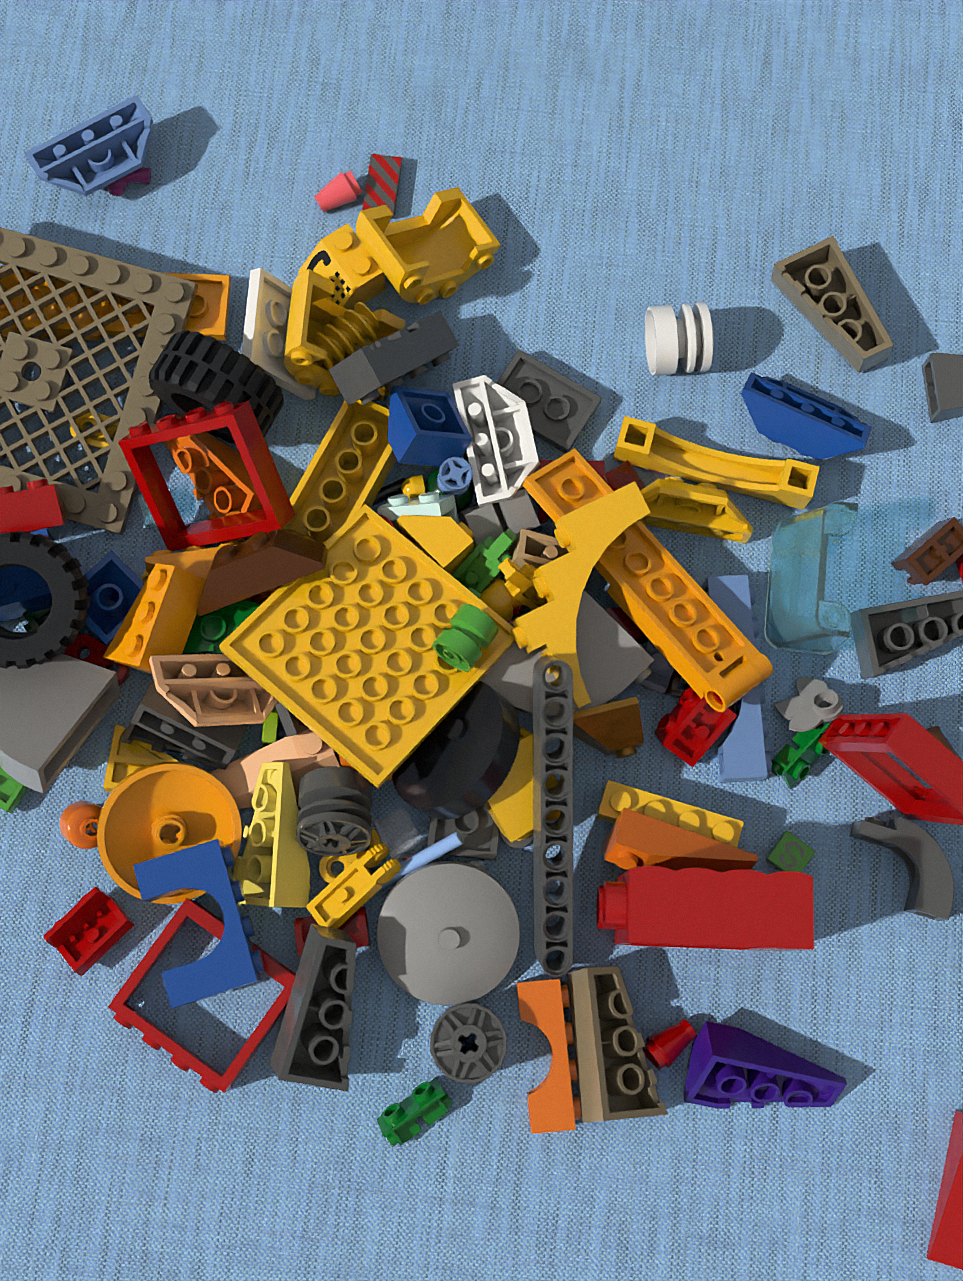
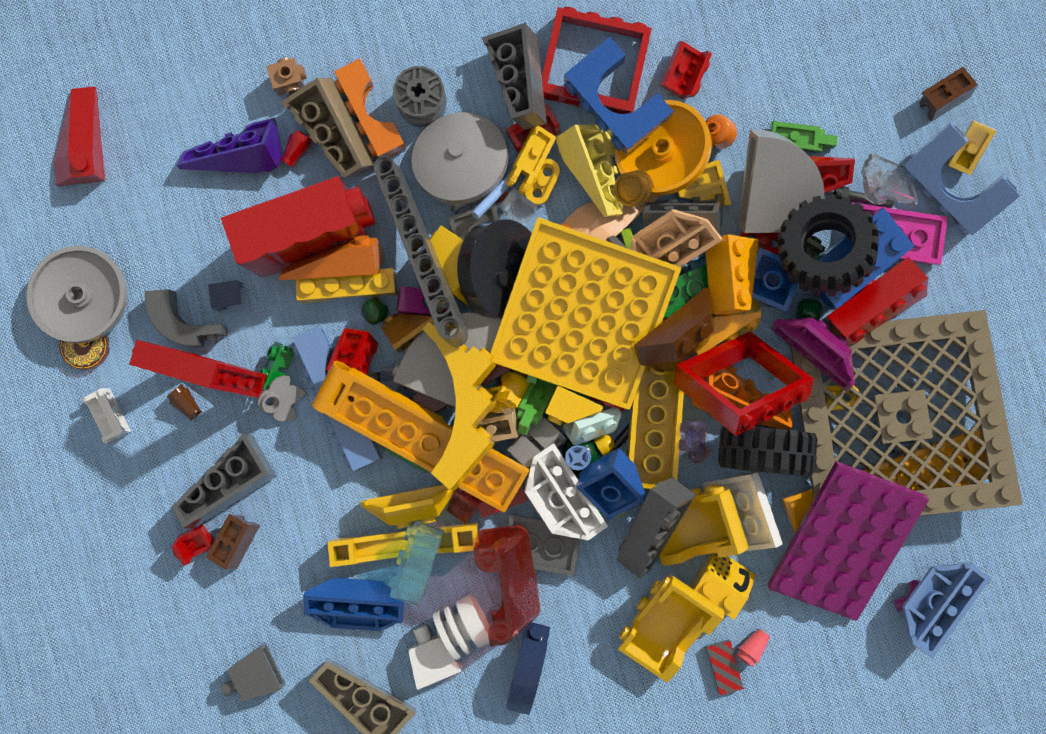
camera: 160 degrees right, 10 degrees up
(84, 547) = (809, 308): none -> dark green piece
(91, 490) = (819, 347): none -> magenta wedge
(170, 254) = (847, 541): none -> magenta plate
(233, 788) = (633, 188): none -> pearl gold wheel
(301, 441) = (694, 441): none -> clear purple animal
(334, 811) = (562, 198): dark grey wheel -> none
(346, 333) = (697, 529): yellow piece -> none
(399, 1119) = (444, 38): green hinge -> none
(468, 633) = (521, 337): bright green wheel -> none
(591, 760) = (410, 302): none -> magenta torso
(594, 391) = (509, 554): none -> clear red windscreen
(616, 262) = (528, 668): none -> dark blue arch
(644, 771) = (374, 311): none -> dark green piece
(656, 1160) = (286, 76): none -> medium nougat brick
(709, 428) = (415, 563): none -> clear light blue wedge
(734, 322) = (430, 659): none -> white torso
(790, 853) = (260, 296): bright green tile -> none
(795, 603) = (317, 482): clear light blue windscreen -> none
(838, 873) = (225, 294): none -> dark blue panel

